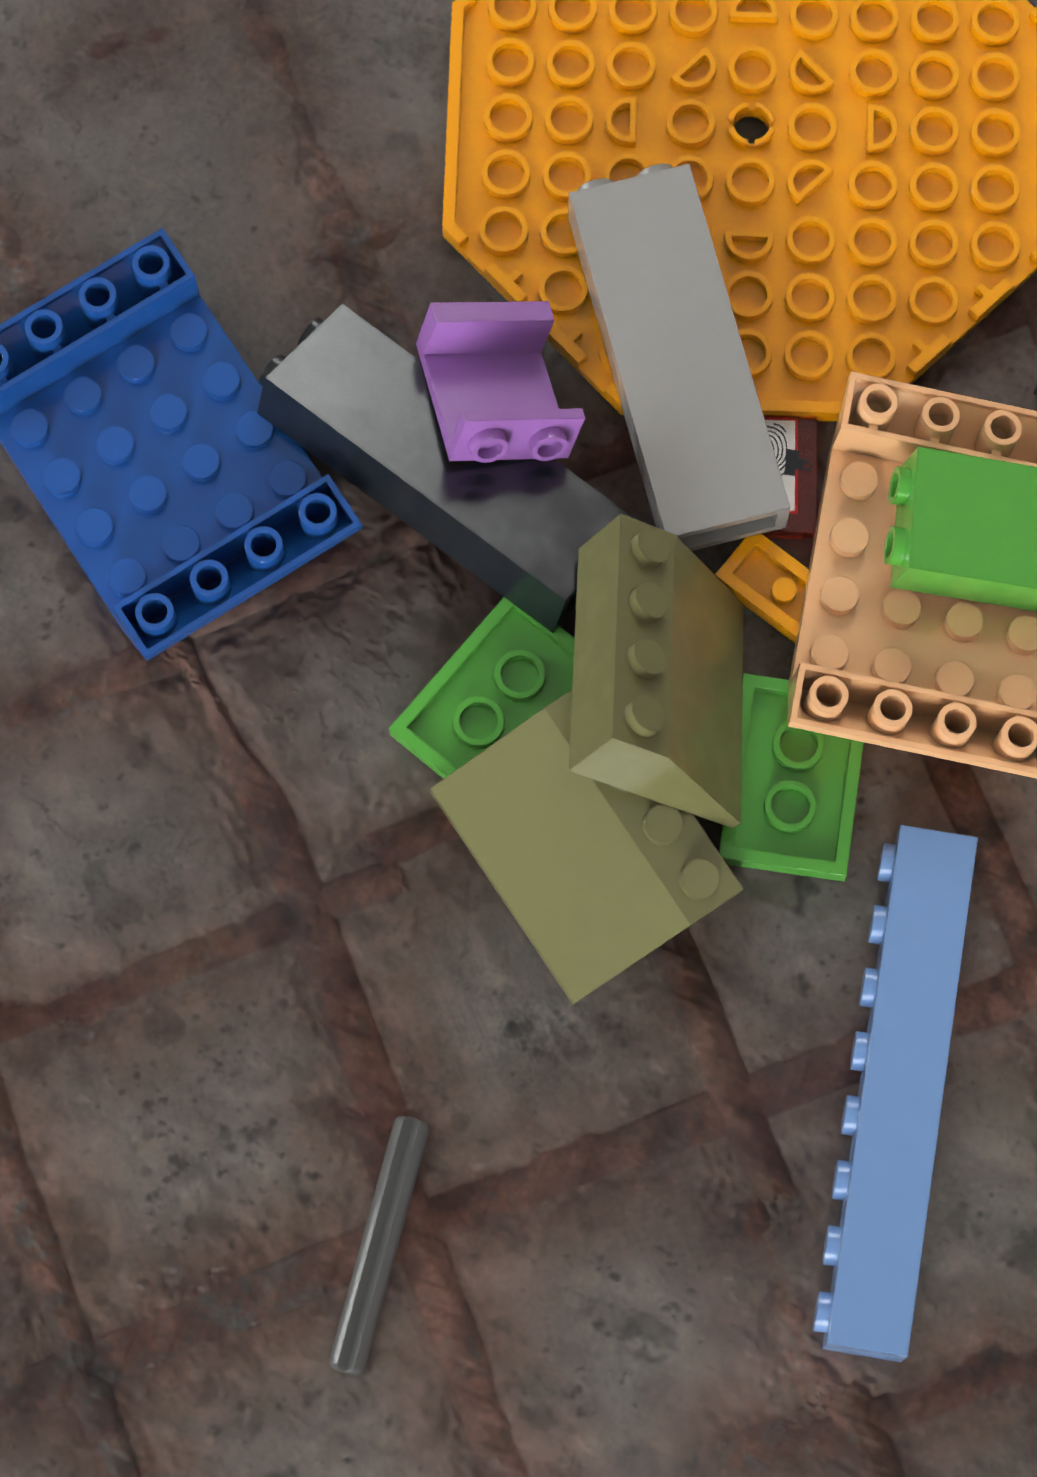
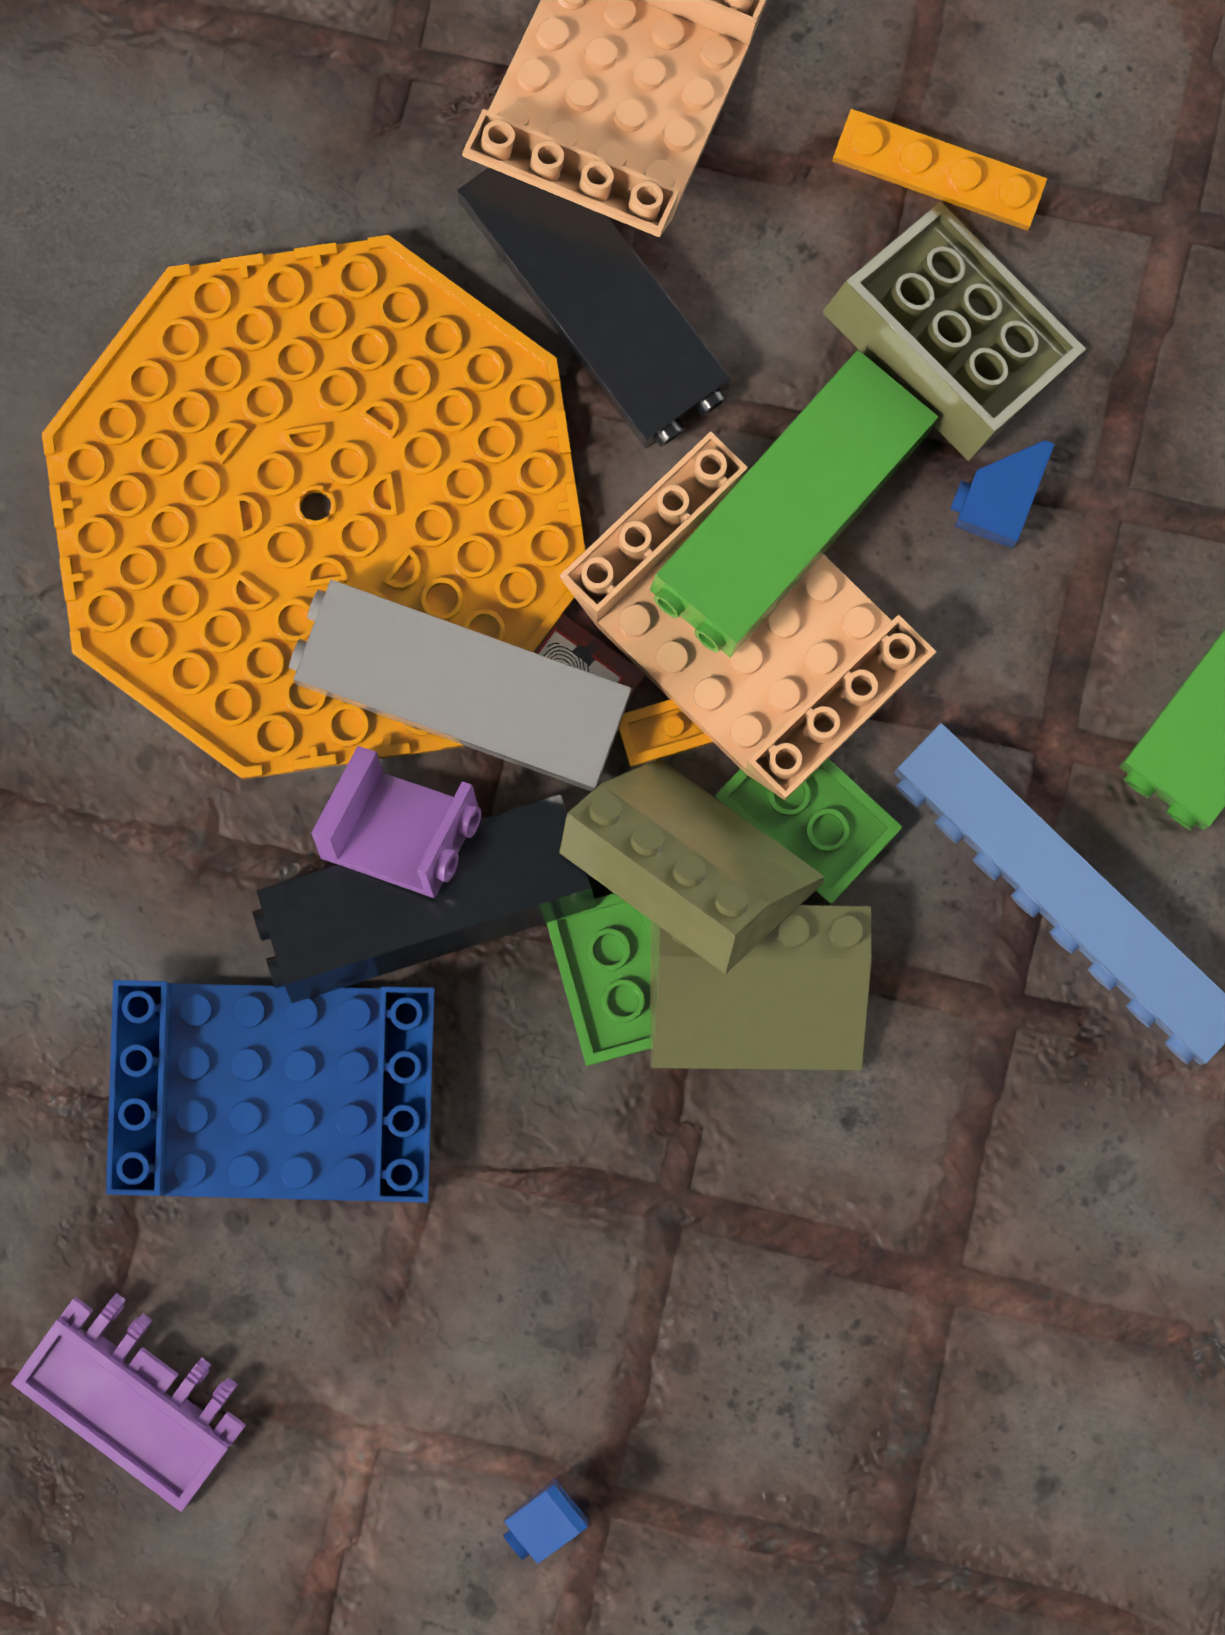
camera: 60 degrees left, 10 degrees up
(379, 1245) = (934, 1311): dark grey axle -> none

